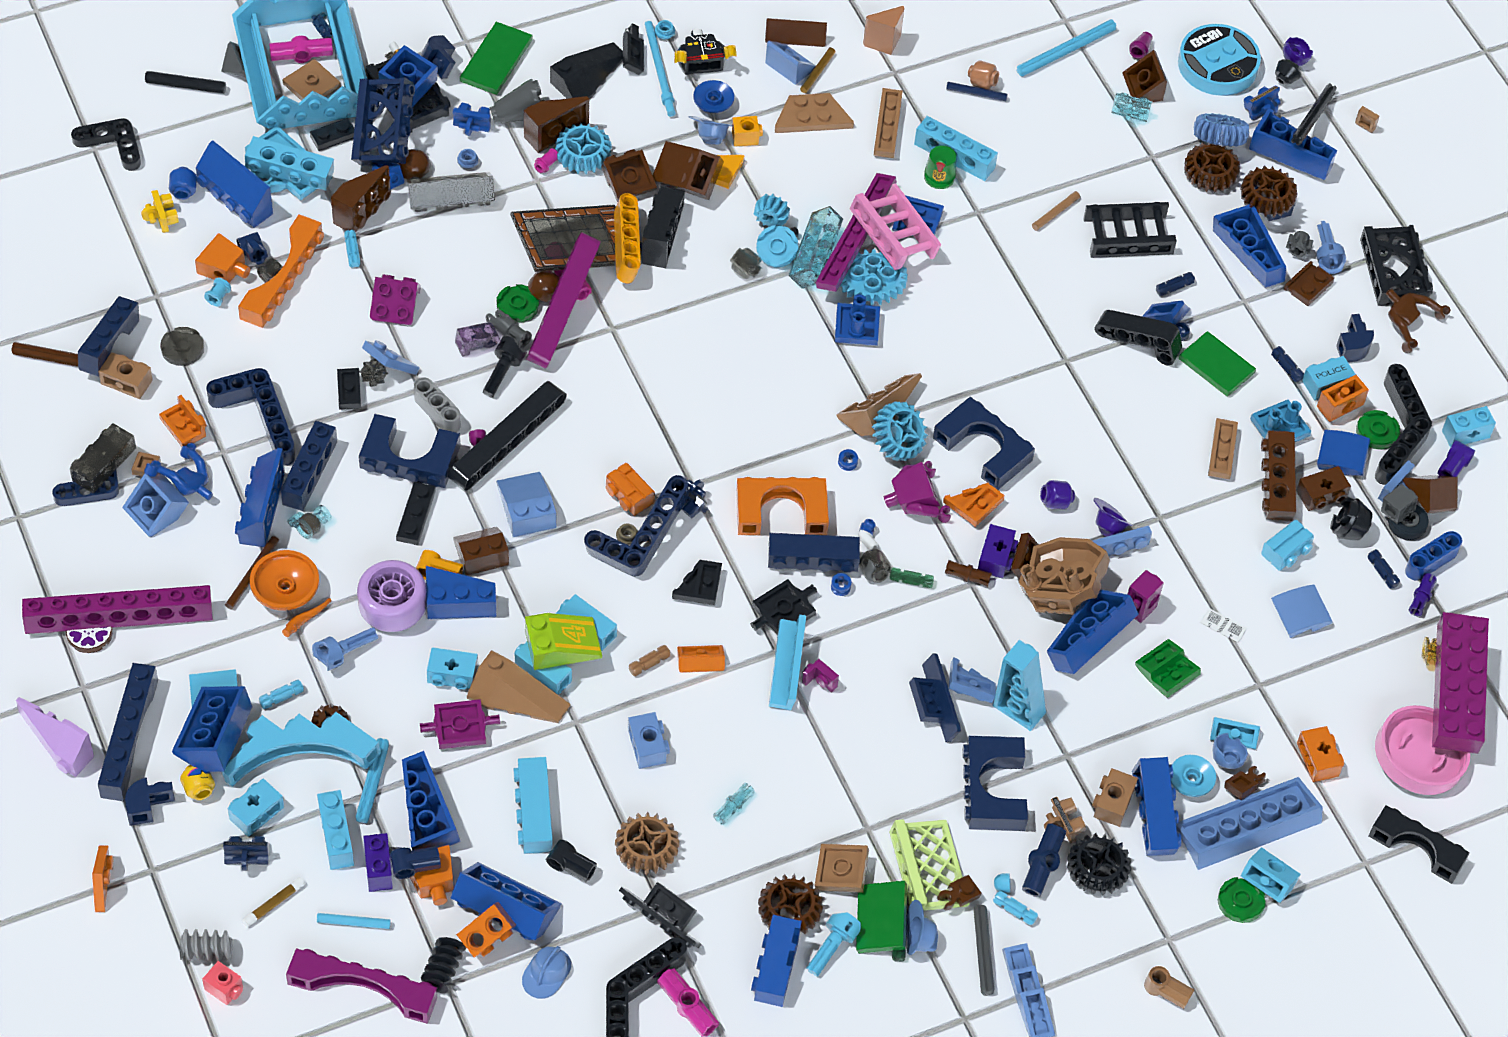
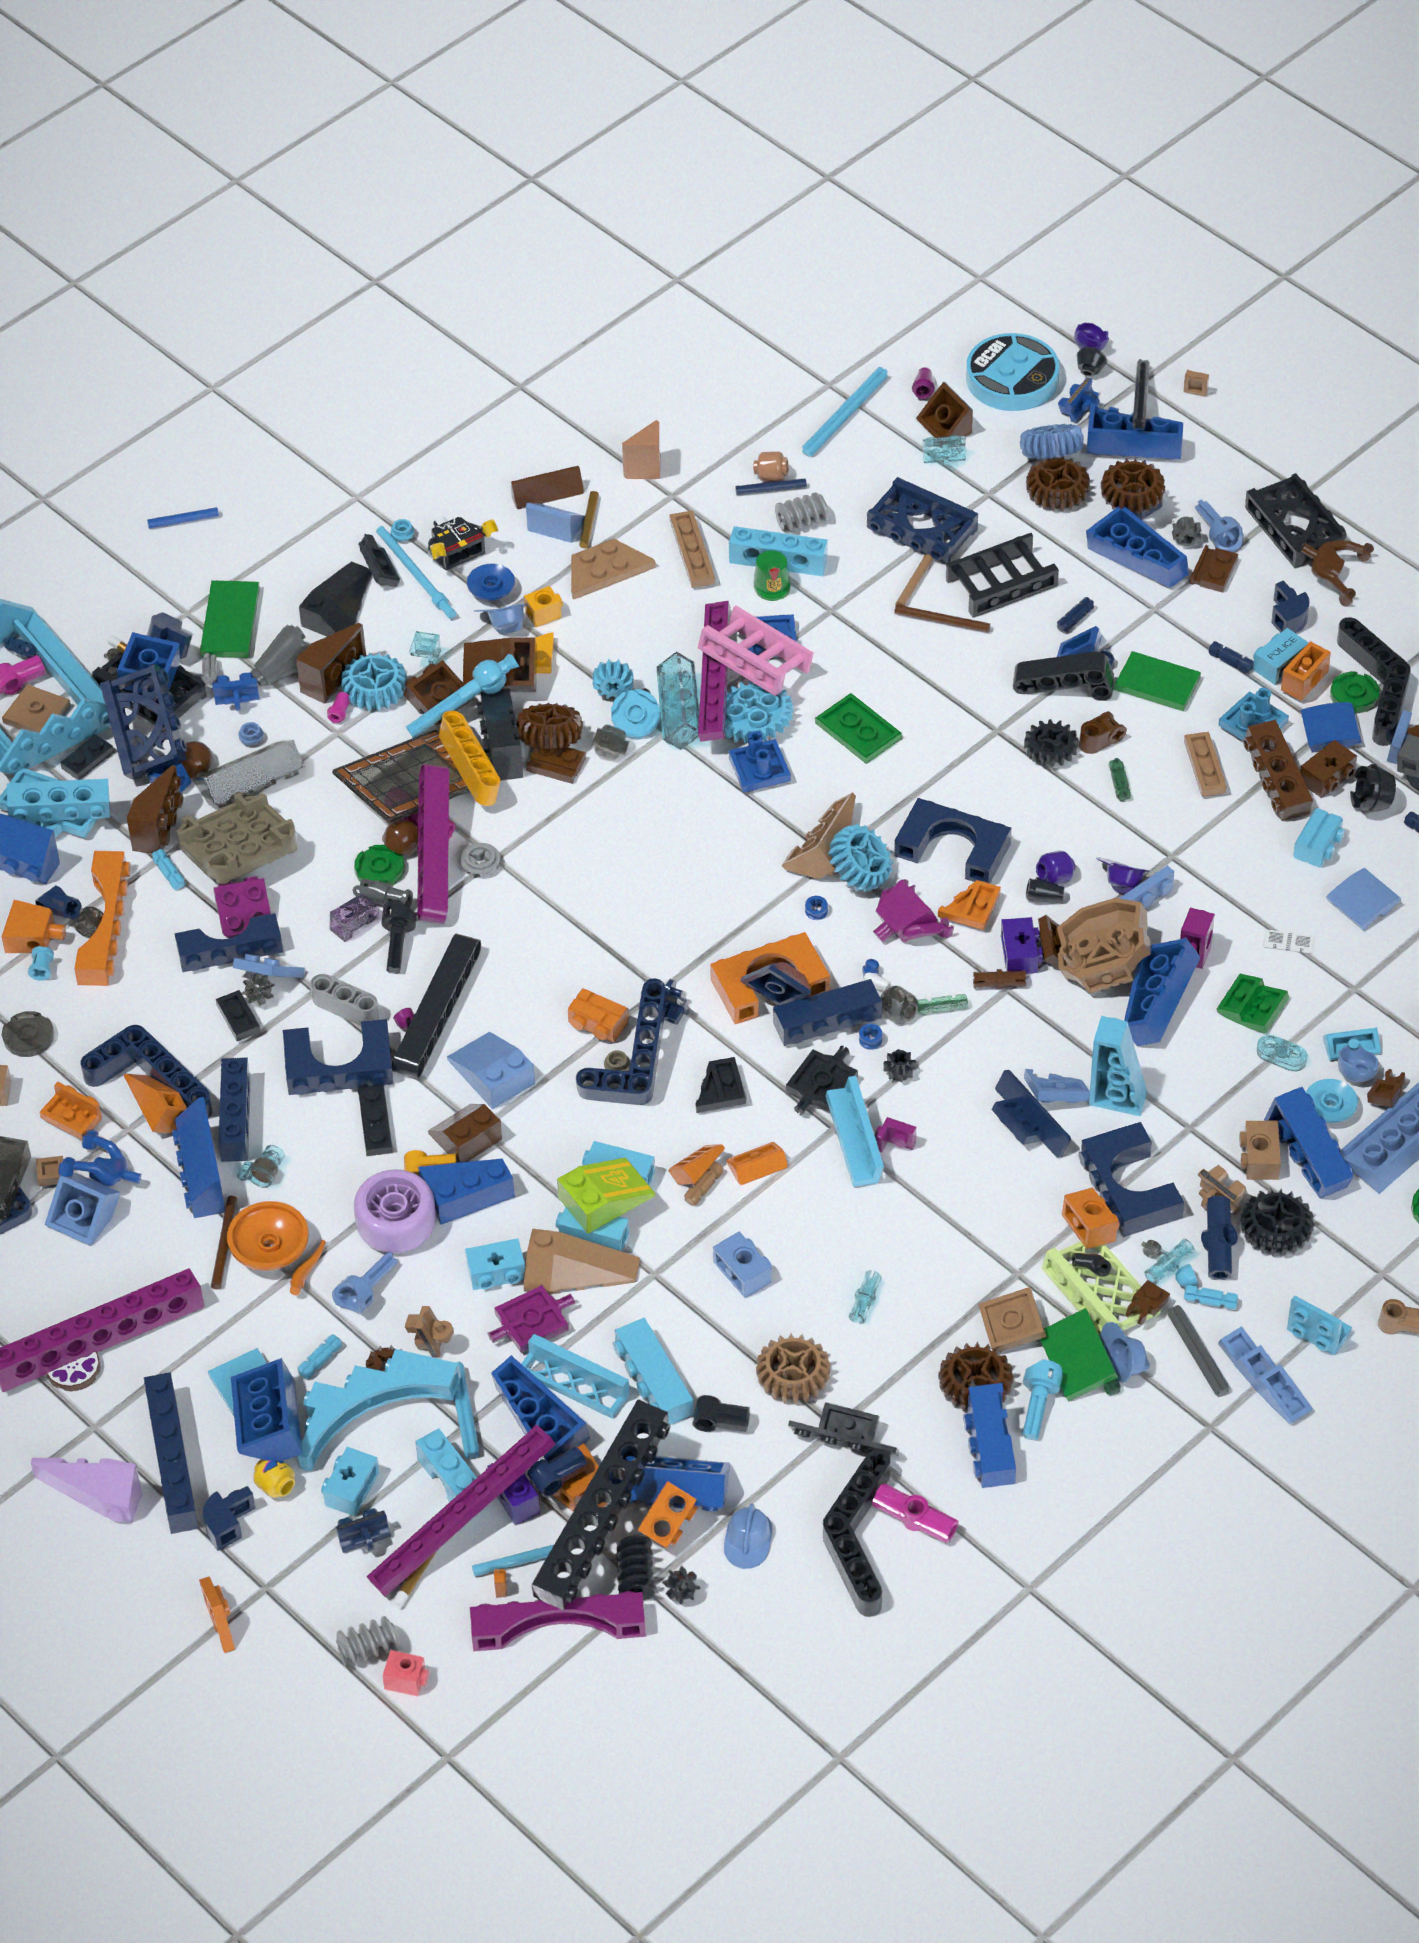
camera: 15 degrees left, 5 degrees down
(252, 437) = (157, 1102): none -> orange slope
(324, 865) = (460, 1510): none -> magenta plate
(332, 935) = (500, 1583): none -> orange tile
(372, 705) = (429, 1330): none -> medium nougat hips
(393, 331) = (200, 951): none -> dark blue arch
(413, 242) = (237, 838): none -> dark tan plate
(459, 94) = (209, 669): none -> light grey axle
(477, 779) = (583, 1372): none -> medium azure fence
(478, 994) = (686, 1590): none -> black gear
(494, 844) = (641, 1420): none -> black brick
(598, 318) = (476, 852): none -> light grey gear
(637, 133) = (426, 646): none -> clear light blue panel
(649, 642) = (696, 1164): none -> orange slope
(669, 177) = (487, 676): none -> medium azure piece
(697, 264) = (556, 763): none -> reddish brown plate
(702, 233) = (549, 726): none -> reddish brown gear
(783, 513) = (778, 983): none -> dark blue slope
(852, 617) = (899, 1065): none -> black gear
(930, 843) = (1093, 1262): none -> black arm
(945, 804) = (1090, 1218): none -> orange brick
(953, 319) = (858, 728): none -> green tile
(980, 870) = (1181, 1251): none -> clear light blue pin
(986, 849) = (1151, 1249): none -> clear smoke piece
(990, 120) = (801, 510): none -> light grey piece
(1039, 511) = (1043, 891): none -> black cone
(1065, 250) = (942, 618): none -> reddish brown bar
(1077, 177) = (915, 502): none -> dark blue fence
(1091, 966) = (1317, 1326): none -> medium azure bracket
(1103, 387) = (1051, 743): none -> black gear
(1146, 437) = (1119, 779): none -> clear green axle
(1148, 392) = (1100, 733): none -> reddish brown piece
(1170, 719) = (1280, 1053): none -> clear light blue plate

